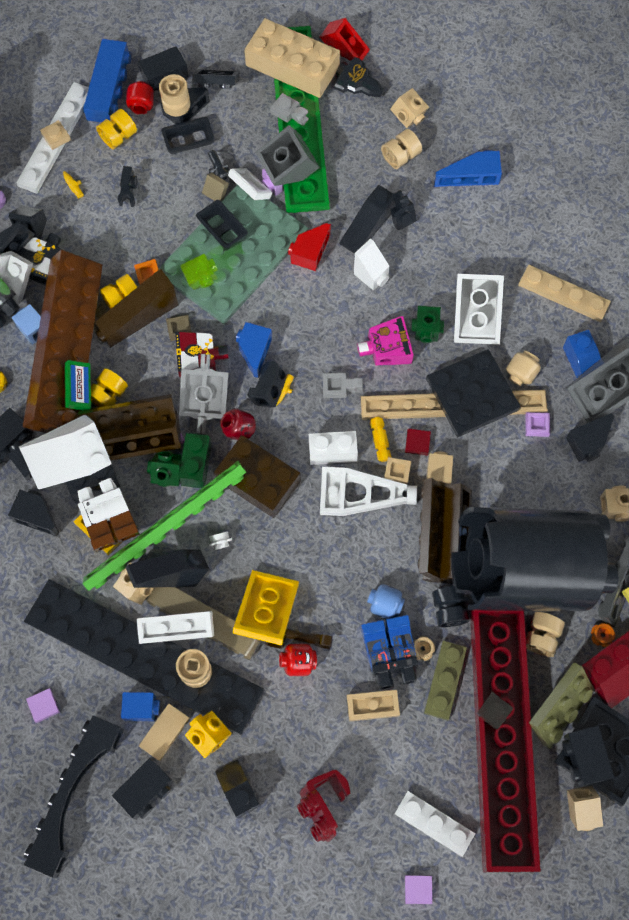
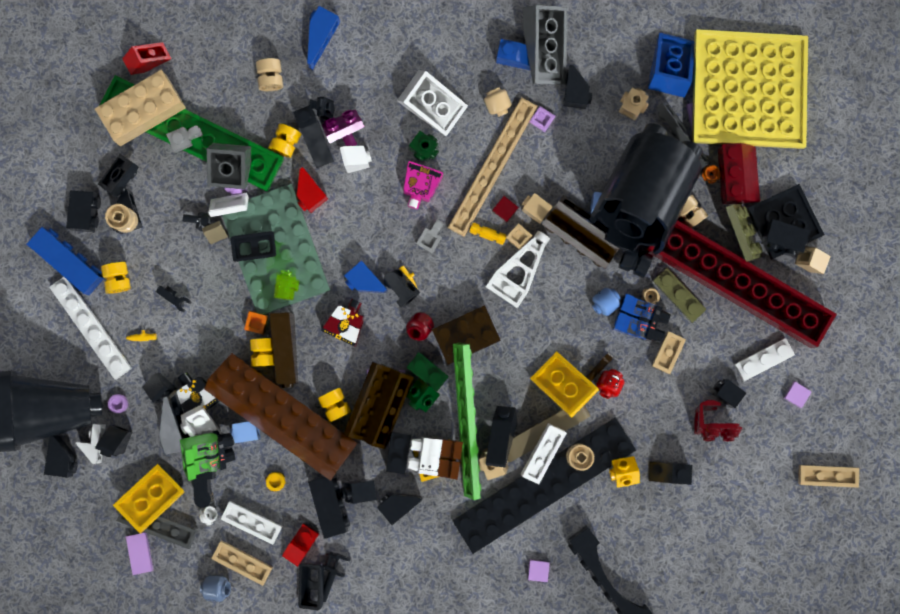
camera: 60 degrees left, 15 degrees up
(55, 135) = (92, 327): tan plate -> none
(65, 453) = (377, 461): white slope -> none
(77, 385) = (325, 424): tile -> none
(139, 706) = (579, 506): blue brick -> none
(140, 97) = (97, 243): red head -> none
(143, 789) = (635, 533): black brick -> none
(164, 732) = (604, 499): tan tile -> none
(178, 324) = (313, 324): dark tan tile -> none
(186, 129) = (148, 225): black piece -> none
(203, 394) = (380, 338): light grey plate -> none
(220, 540) = (495, 387): white plate -> none
(333, 447) = (476, 270): white brick -> none
(346, 197) = (279, 144): none -> yellow wheel
(357, 79) = (186, 69): black rock -> none
(369, 801) = (728, 393): none -> black brick
(395, 239) = (343, 127): none -> magenta plate
(410, 108) = (239, 46): tan brick -> none
(473, 393) = (494, 148): black plate -> none
(494, 711) = (725, 278): clear smoke plate -> none
(564, 293) = (456, 34): tan plate -> none

